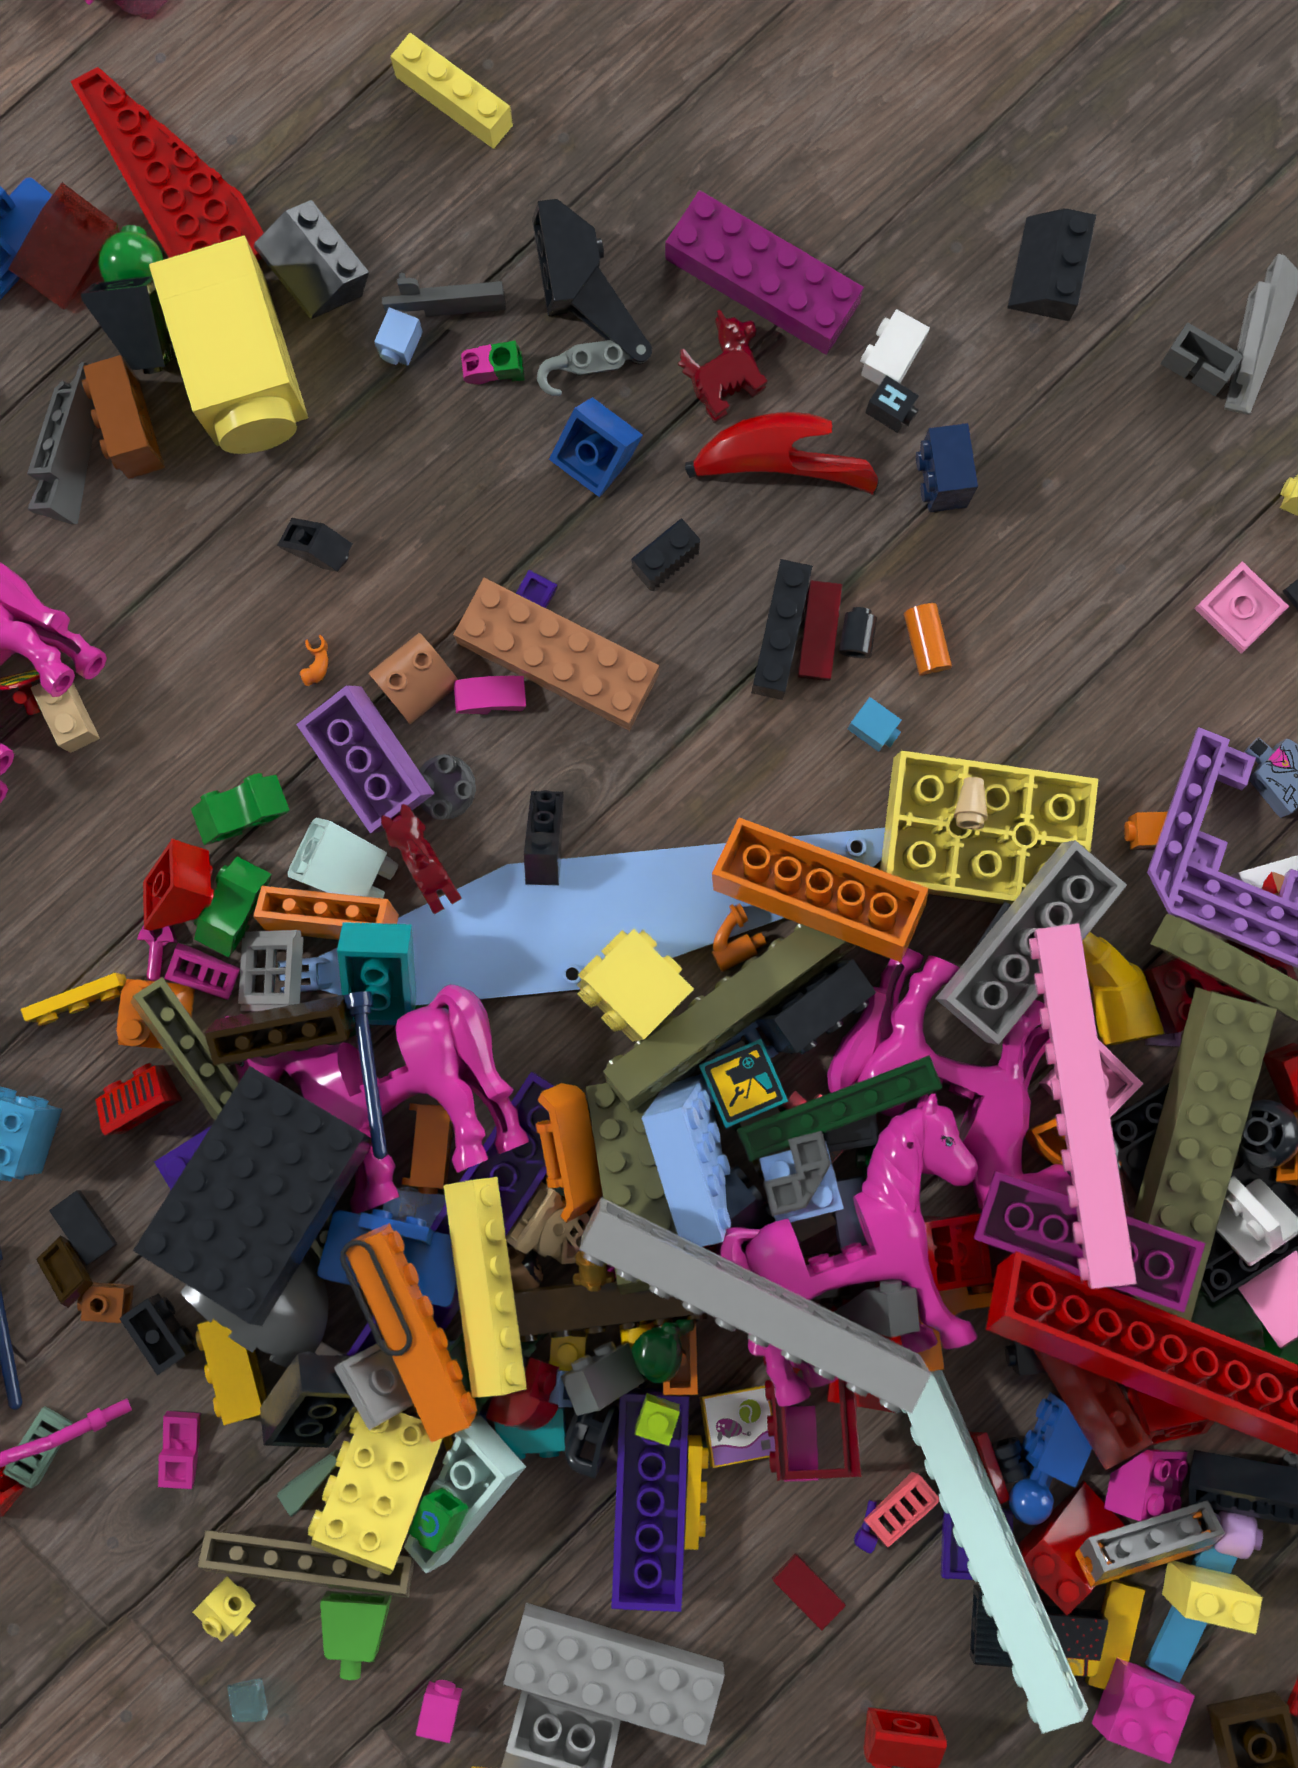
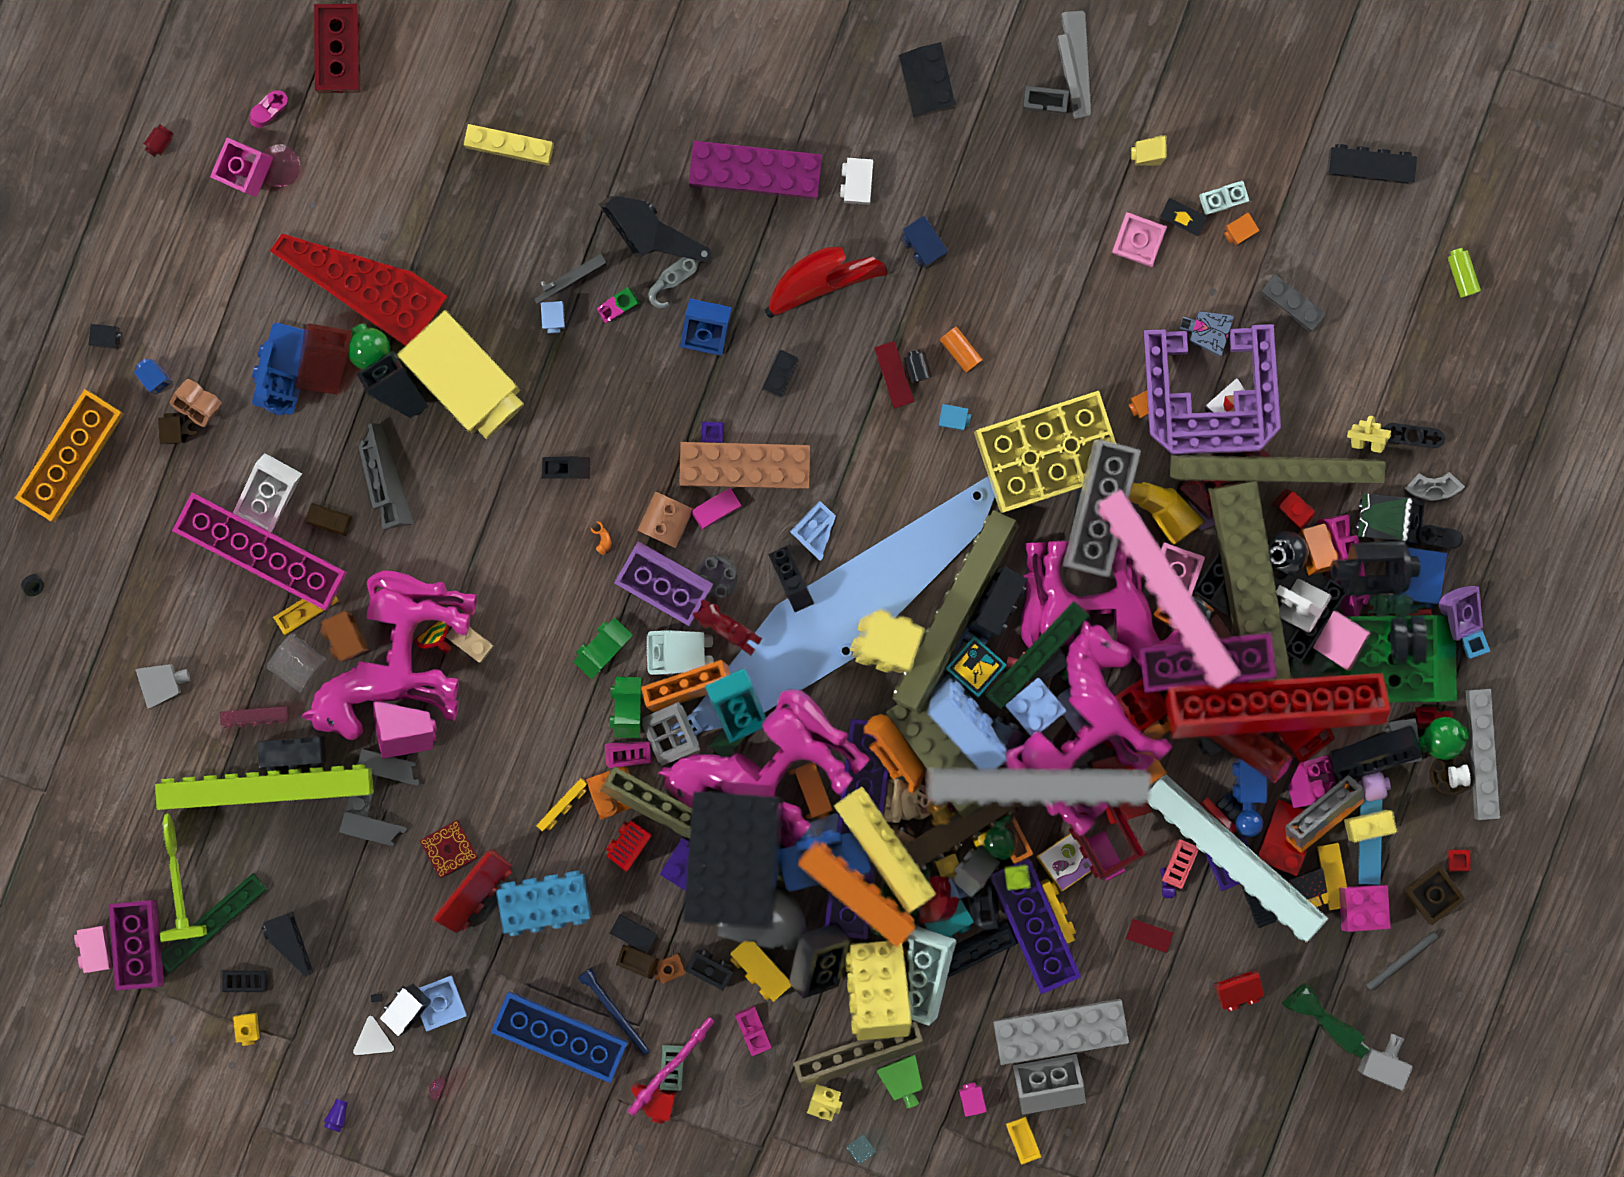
camera: 30 degrees left, 5 degrees up
(122, 417) = (414, 447): dark orange brick -> none
(156, 949) = (593, 753): dark pink bar -> none
(177, 886) = (590, 711): red slope -> none
(279, 1030) = (698, 763): dark brown brick -> none
(300, 1489) = (834, 1017): sand green slope -> none
(312, 260) = (478, 295): black slope -> none
(360, 1007) = (738, 729): dark blue piece -> none
(374, 1385) = (851, 931): light grey tile -> none
(390, 1294) = (823, 889): black piece -> none
(438, 1520) = (921, 990): green brick -> none
(559, 1489) = (981, 947): none -> black slope
(611, 787) = (815, 529): none -> light blue wing
(729, 370) = (763, 242): dark red animal -> none
(740, 949) = (936, 590): orange plant -> none
(781, 629) = (871, 386): black brick -> none
(797, 1189) = (1036, 694): dark grey tile -> none
(820, 889) = (966, 534): orange brick -> none
(884, 1309) = (1114, 754): dark grey slope -> none
(893, 404) = (873, 215): black brick -> none
(971, 805) = (1031, 443): tan cone -> none

